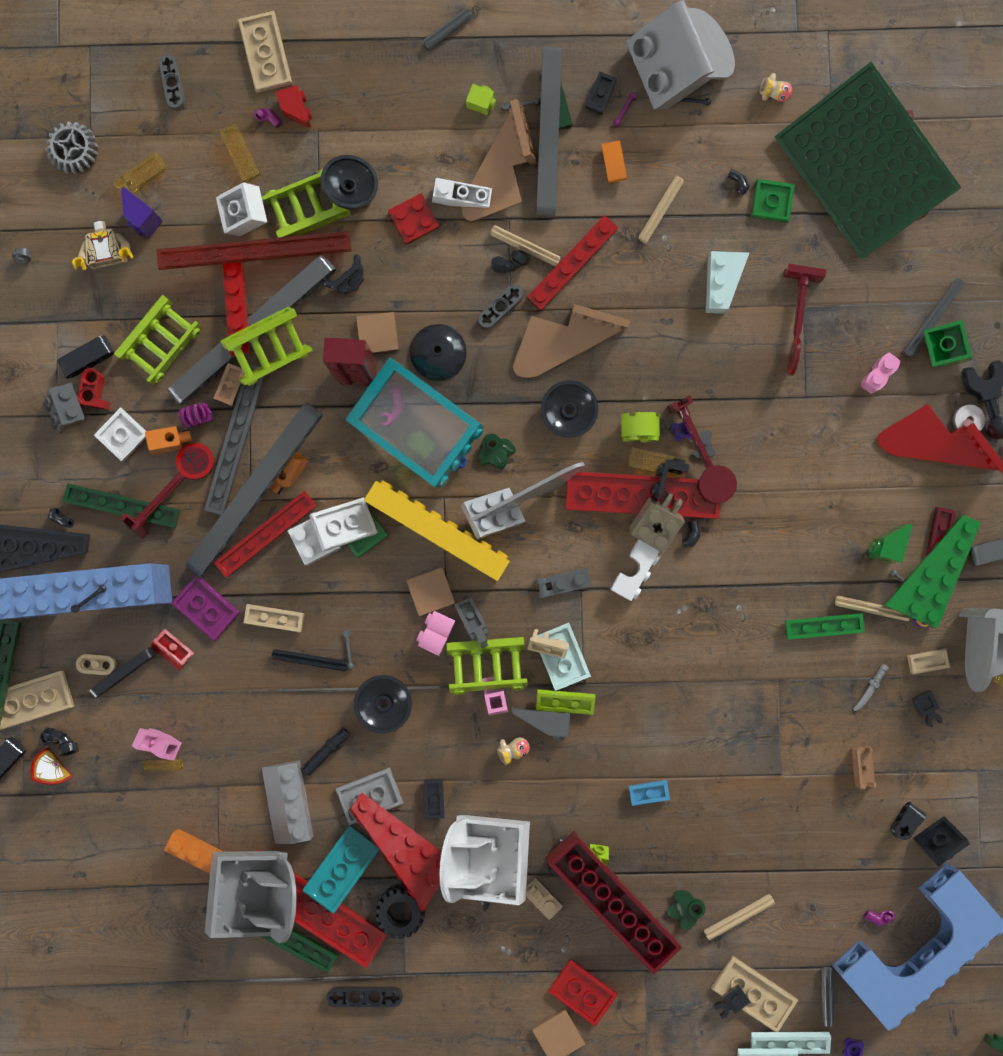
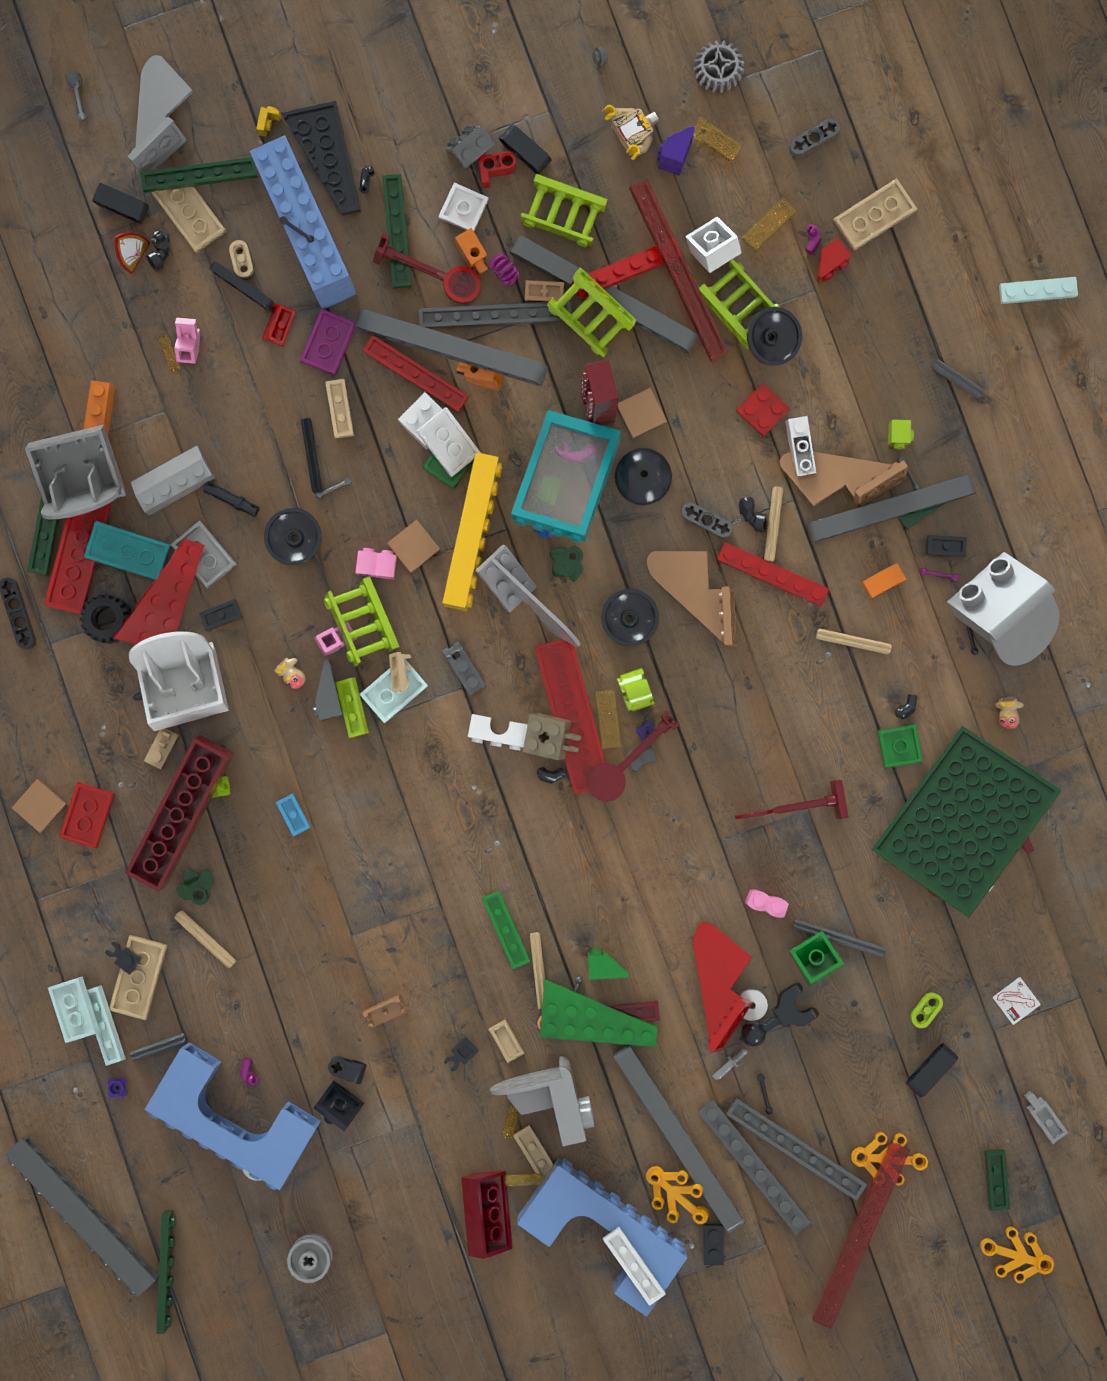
camera: 75 degrees right, 0 degrees up
(349, 280) = (682, 369): black piece -> none
(472, 621) = (398, 594): dark grey hinge -> none
(674, 466) = (608, 734): black bracket -> none
(722, 279) = (807, 722): light aqua wedge -> none
(874, 683) = (464, 995): light grey piece -> none

